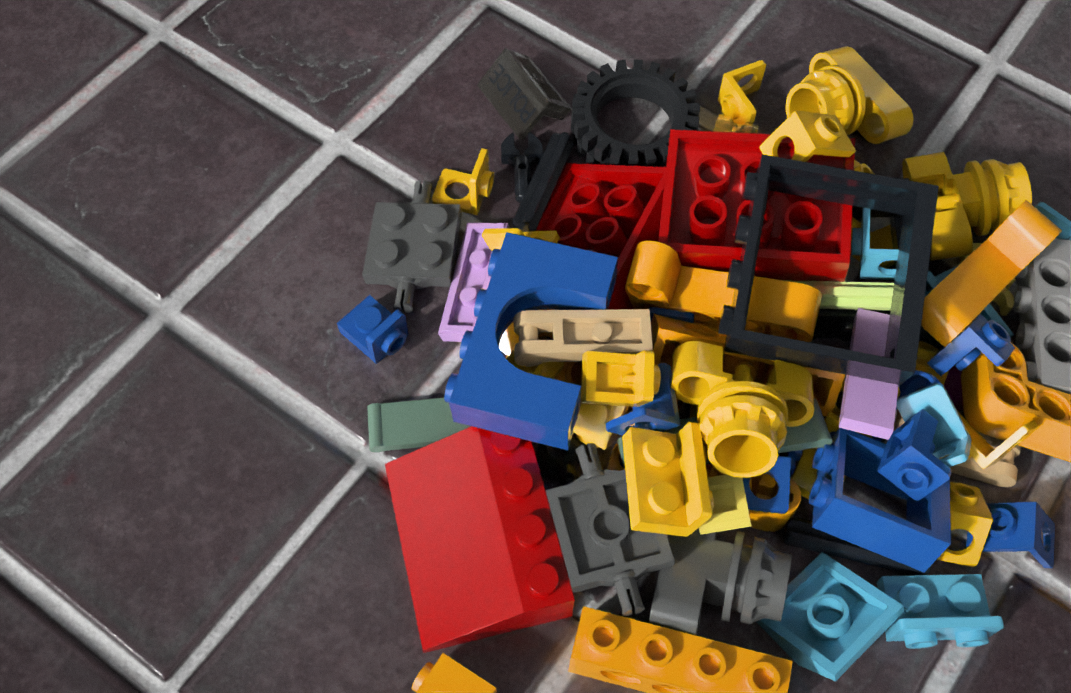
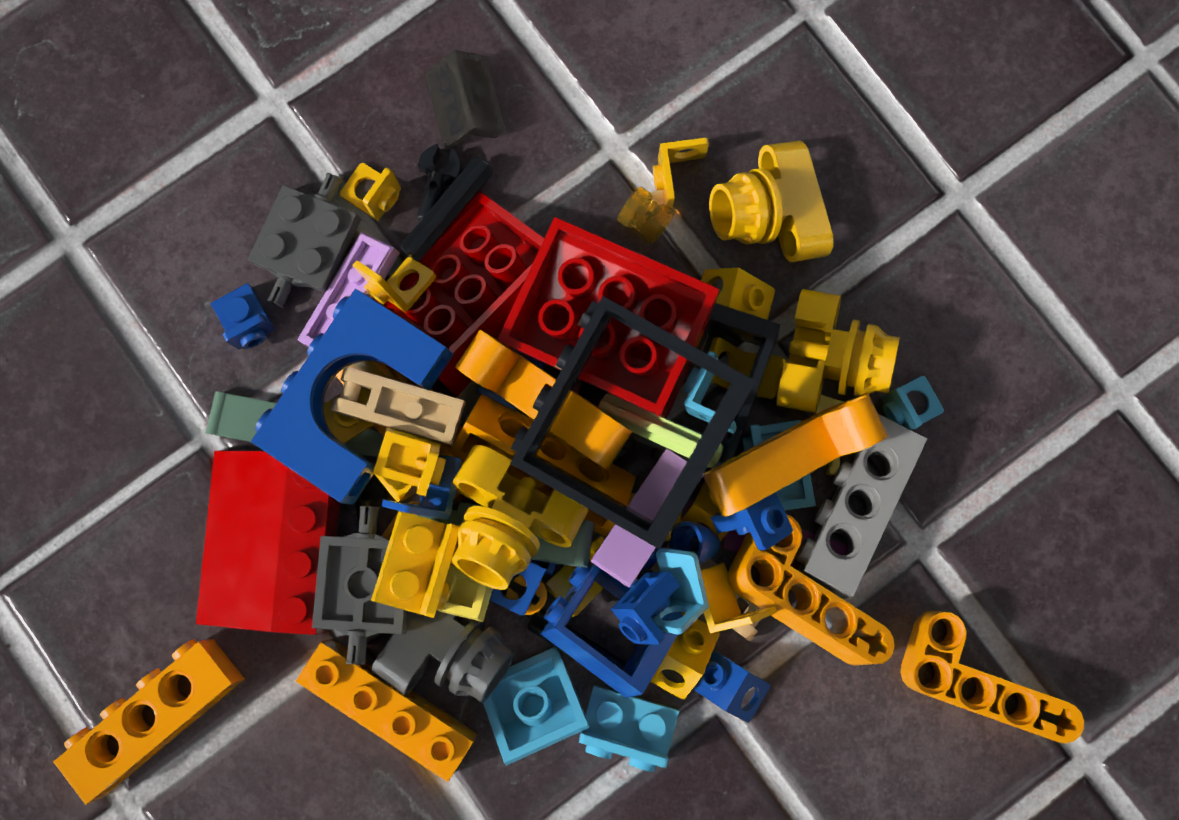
camera: 20 degrees right, 20 degrees up
(628, 83) = (553, 118): black tyre -> none
(811, 135) = (669, 282): yellow bracket -> none

